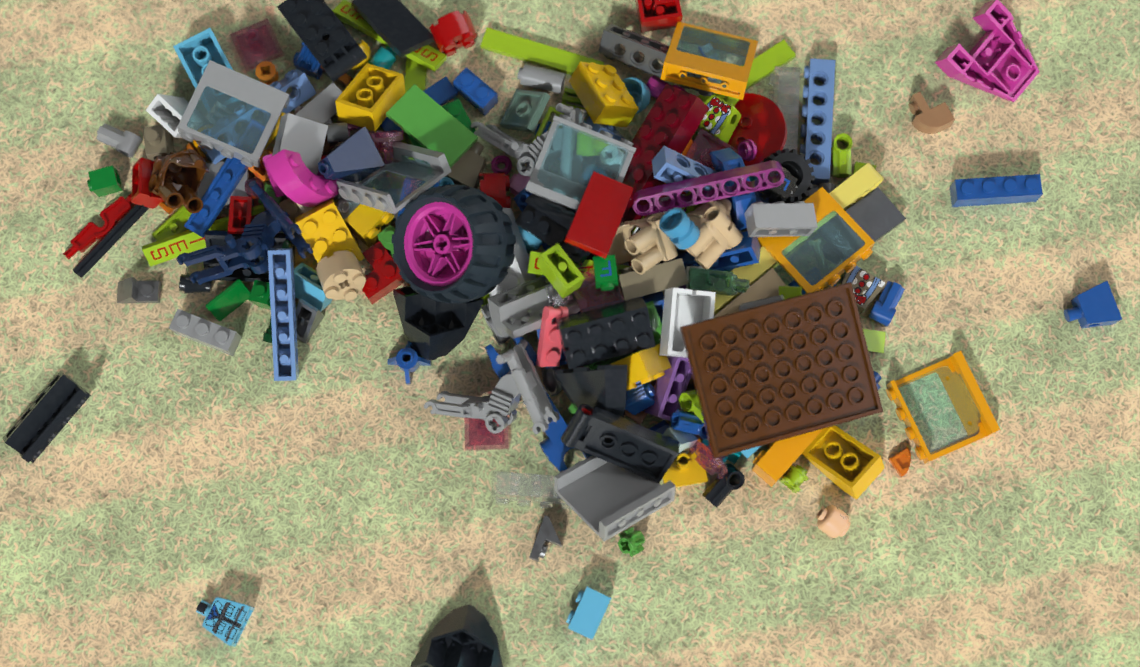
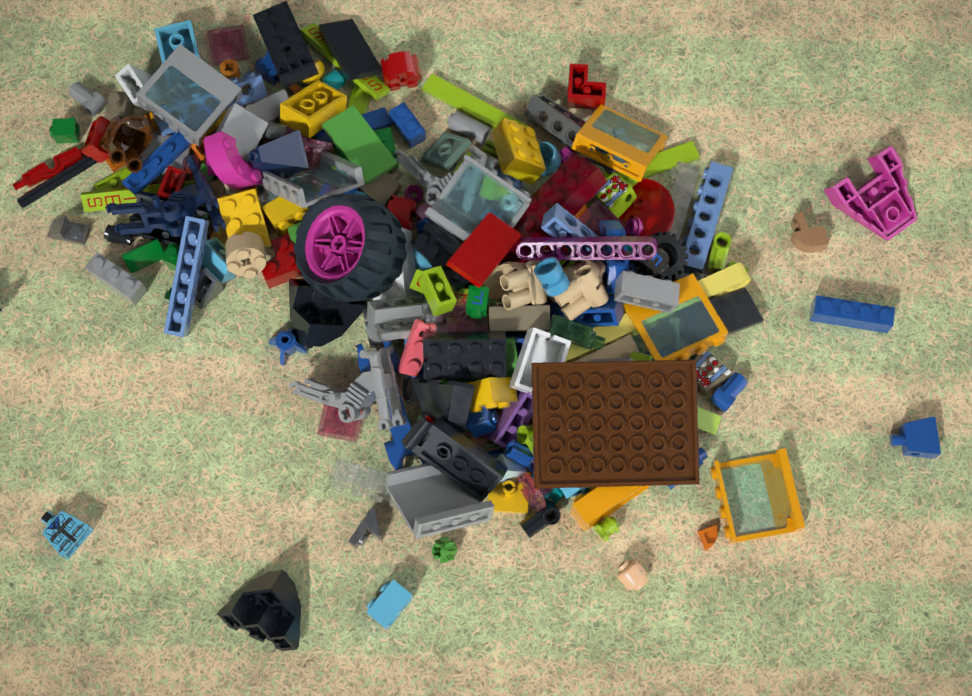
camera: 10 degrees right, 5 degrees down
(844, 460) = (656, 522): yellow slope -> none

